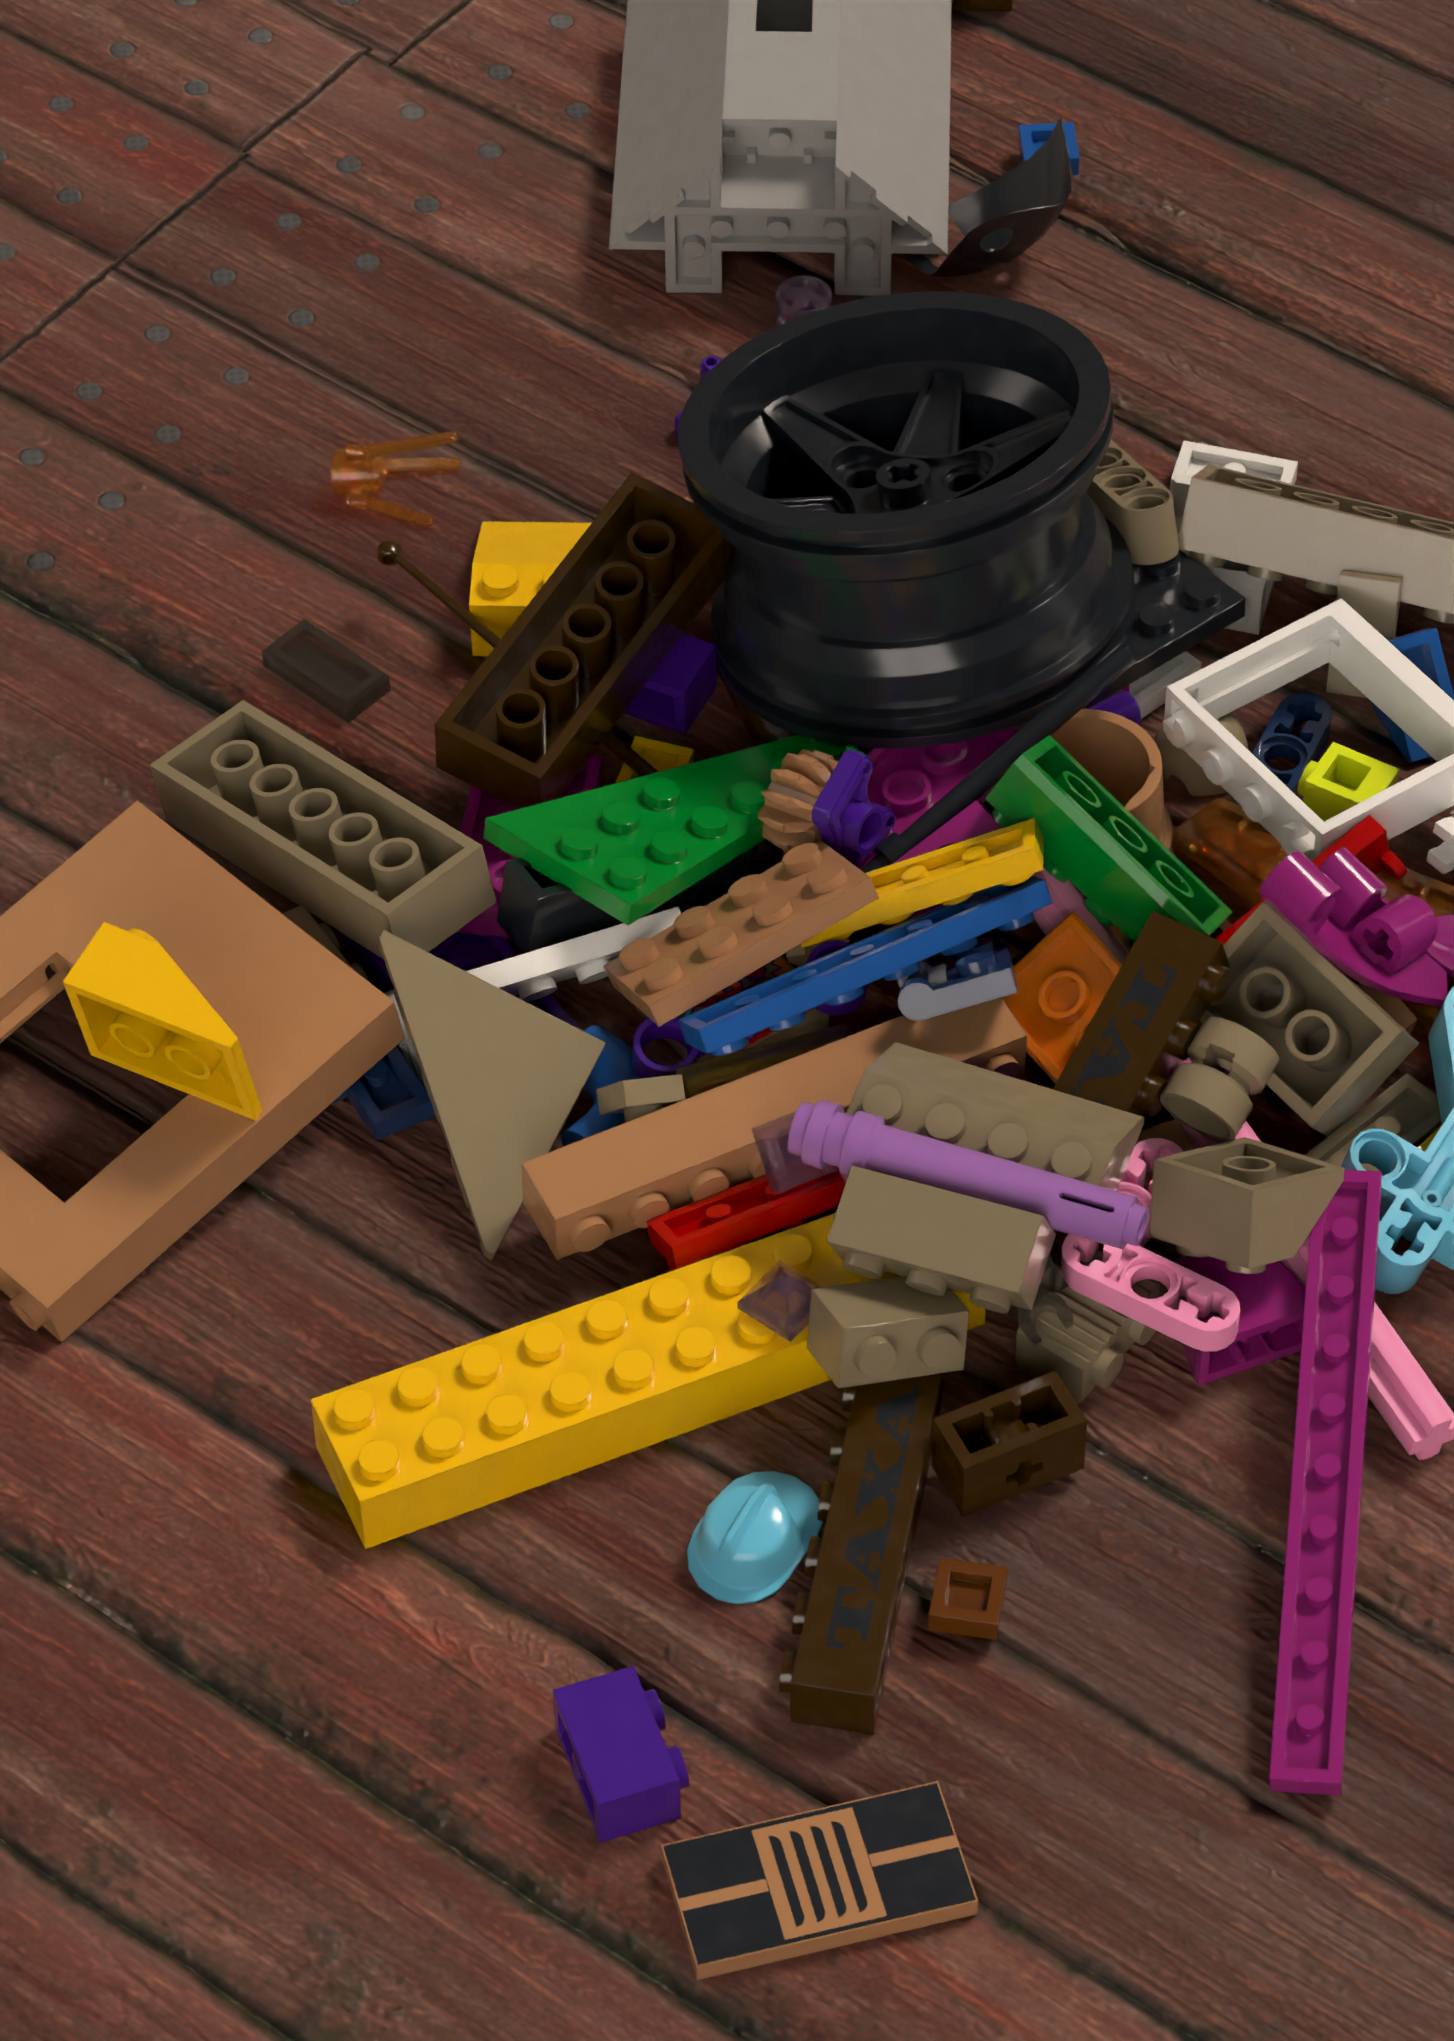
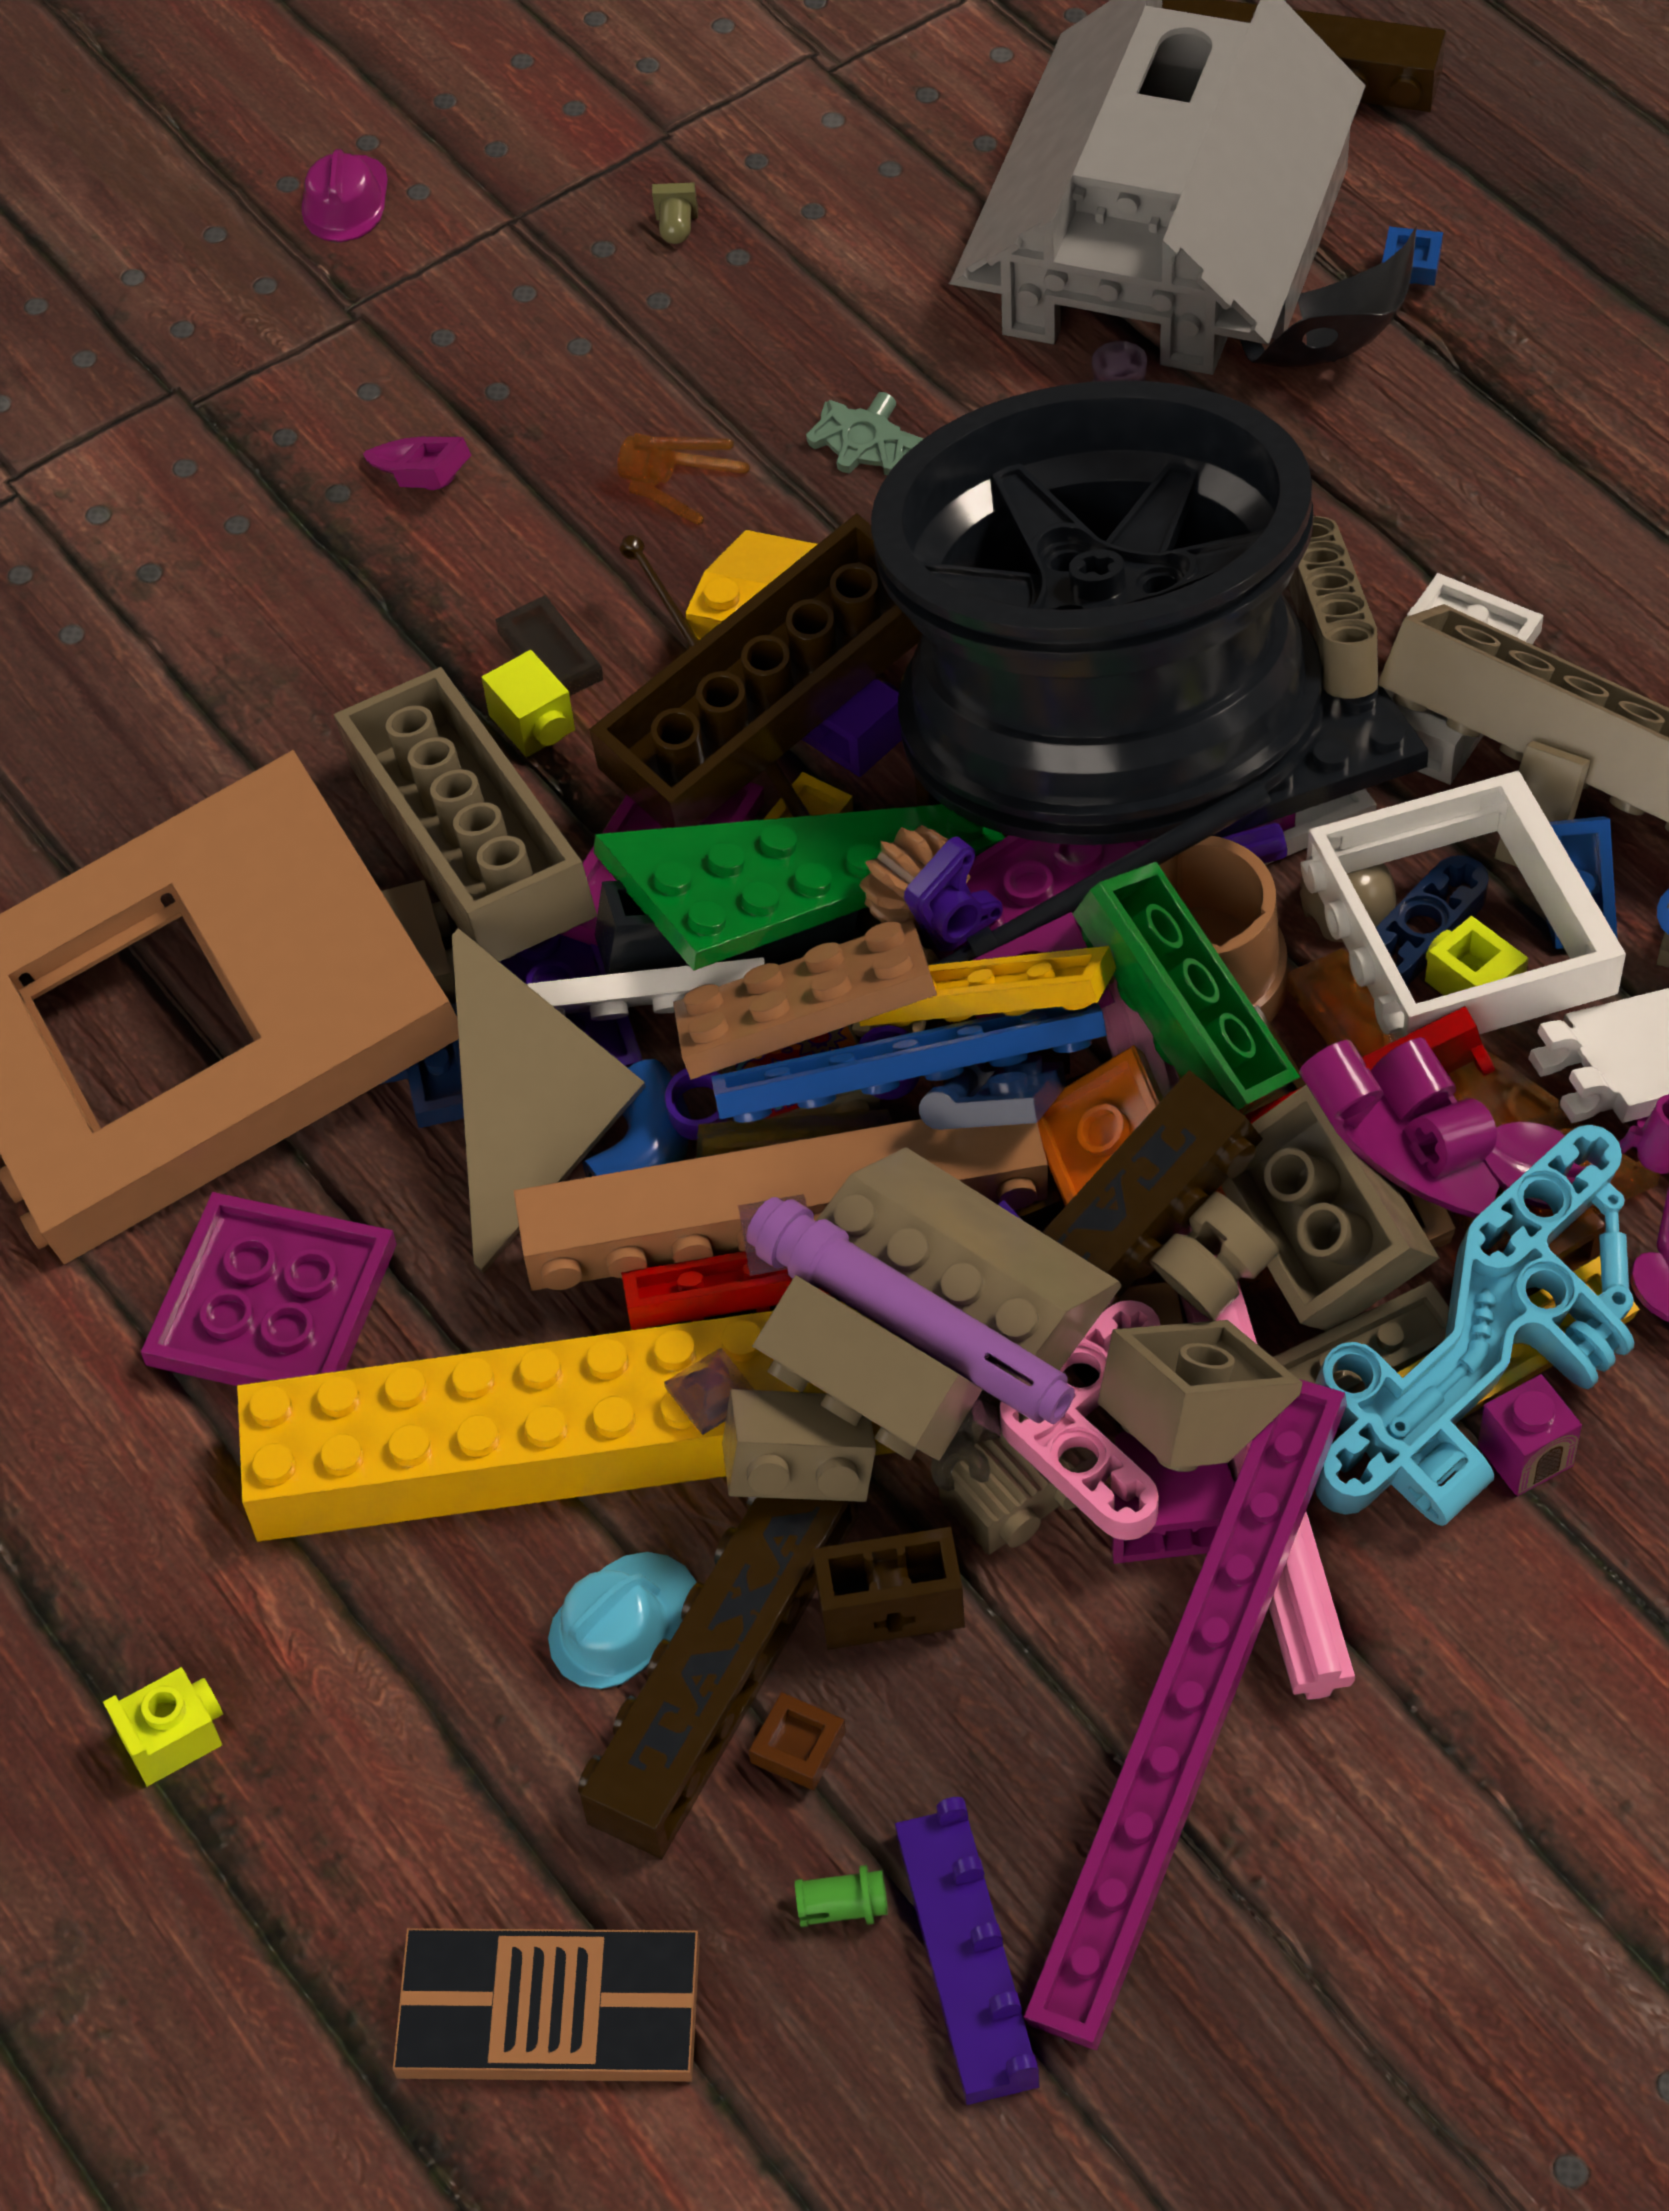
camera: 20 degrees right, 5 degrees up
(121, 513) = (421, 460): none -> magenta plate
(155, 1022) = (208, 970): yellow slope -> none
(289, 223) = (674, 208): none -> olive piece
(289, 1319) = (268, 1294): none -> magenta plate
(334, 717) = (528, 703): none -> neon yellow brick
(351, 1724) = (166, 1724): none -> neon yellow brick
(574, 413) = (862, 434): none -> sand green piece
(619, 1753) = (400, 1821): dark purple brick -> none
(640, 1096) = (654, 1146): dark tan plate -> none
(1061, 1722) = (841, 1897): none -> bright green pin
(1192, 1742) = (966, 1954): none -> dark purple hinge

